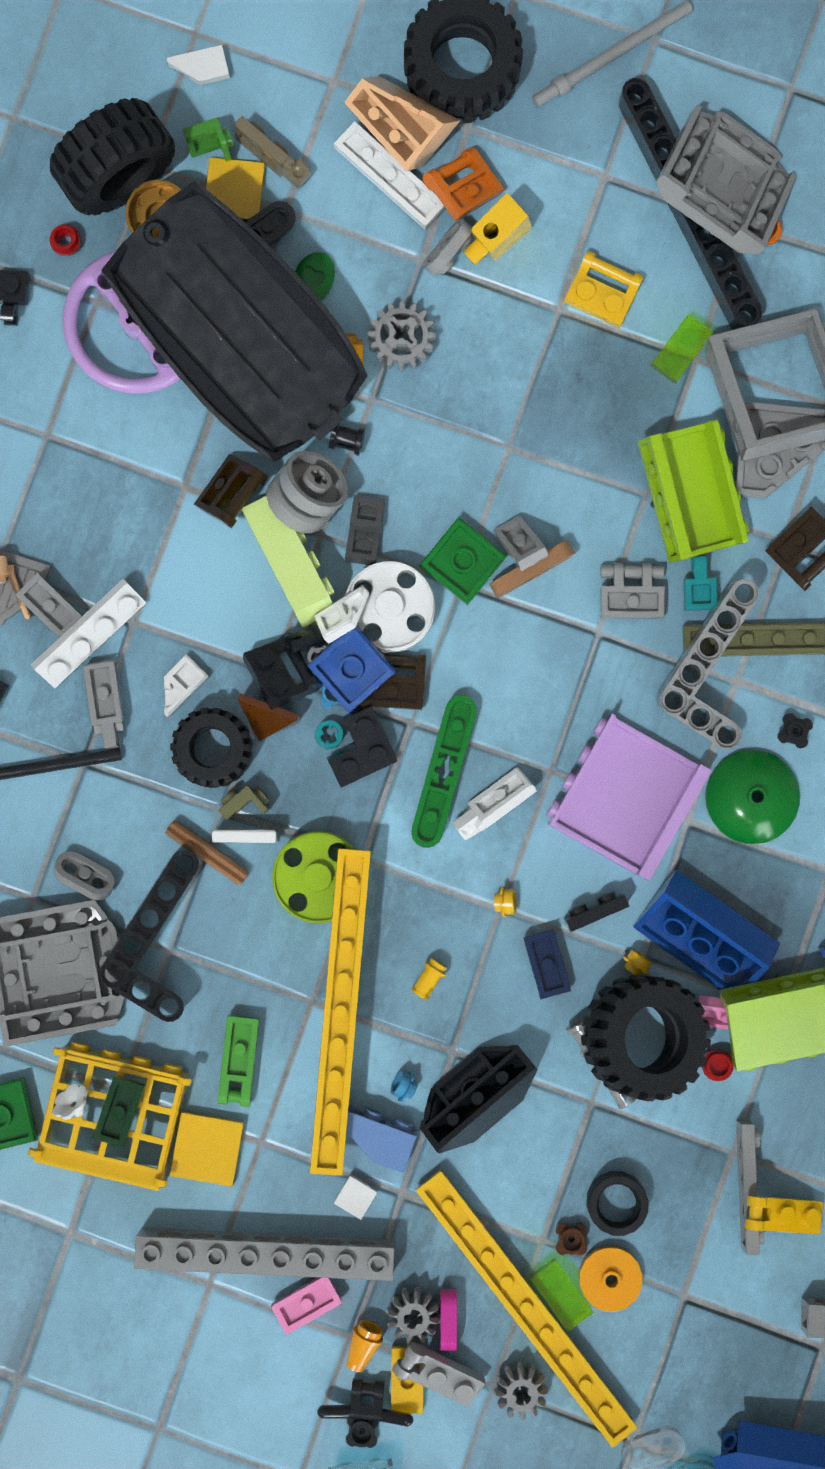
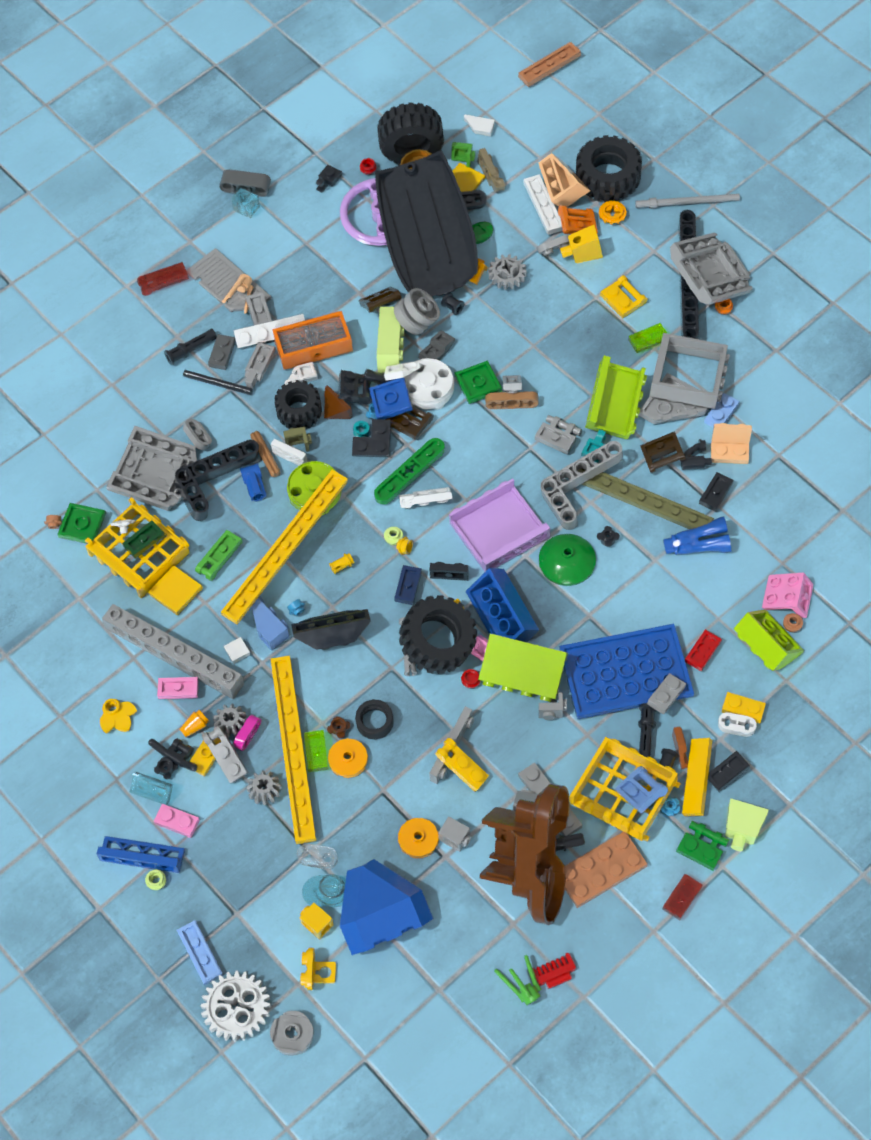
camera: 35 degrees right, 25 degrees down
(32, 706) = (221, 352): none -> dark grey plate
(167, 621) = (312, 340): none -> brick
(212, 906) = (253, 480): none -> blue piece
(245, 1393) = (119, 717): none -> yellow plate
(469, 889) = (392, 540): none -> yellowish green plate
(512, 124) = (606, 209): none -> light orange gear
(771, 1328) = (418, 847): none -> light orange plate

